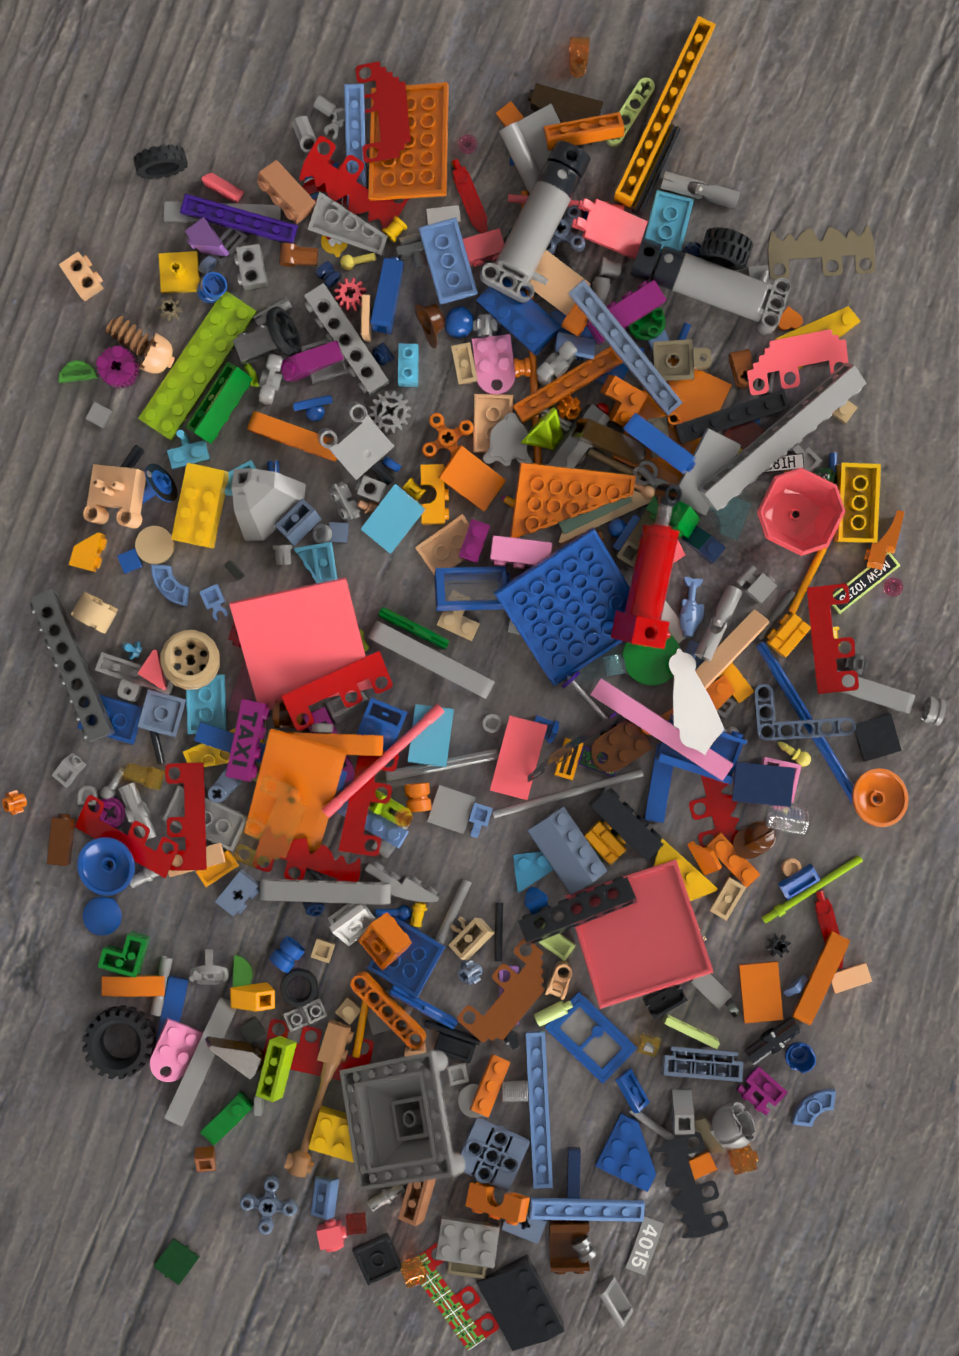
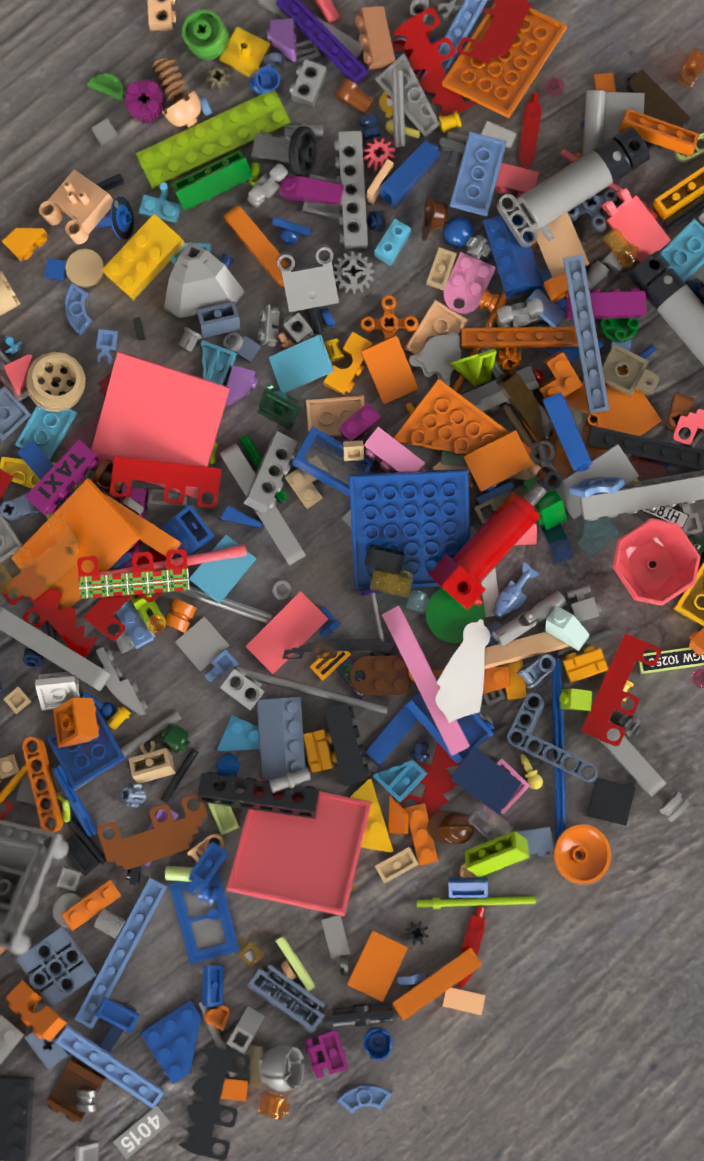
camera: 30 degrees right, 5 degrees down
(135, 277) = (205, 34): none -> bright green wheel
(176, 342) = (205, 105): none -> medium blue tile
(343, 243) = (398, 108): none -> light grey axle
(350, 566) = (240, 383): none -> medium lavender slope
(368, 790) = (138, 582): none -> piece
(397, 566) = (280, 407): none -> clear green slope
(413, 684) = (234, 516): none -> blue slope
(421, 1018) = (66, 809): none -> lime piece
(423, 658) = (256, 496): none -> light grey brick
(477, 903) = (175, 738): none -> dark green head
(484, 568) = (353, 450): none -> tan plate
(506, 831) = (238, 690): none -> light grey brick
(566, 646) = (384, 559): none -> black beam
(568, 1163) = (117, 1014): none -> blue tile
(570, 998) = (206, 867): none -> blue hinge
(582, 661) = (391, 583): none -> clear yellow brick
(583, 1017) = (208, 894): none -> blue wheel
(597, 883) = (289, 780): none -> light grey pin
(610, 253) = (621, 247): none -> clear yellow piece
(613, 503) = (498, 461): none -> orange tile
(652, 1114) = (217, 1017): none -> orange tile
(664, 1000) = (288, 921): black hinge -> none
(688, 824) = (401, 779): none -> dark azure wing
(689, 1041) = (289, 970): none -> light nougat tile
(691, 793) = (420, 753): none -> dark blue plate
(718, 470) = (603, 485): none -> medium blue tile
(747, 666) = (533, 670): none -> sand blue piece
(755, 613) = (566, 628): none -> light aqua slope
(798, 669) = (576, 699): none -> lime brick
(807, 580) = (631, 627): light orange bar -> none
(809, 841) = (496, 854): none -> lime brick
(830, 812) = (538, 840): none -> sand blue brick

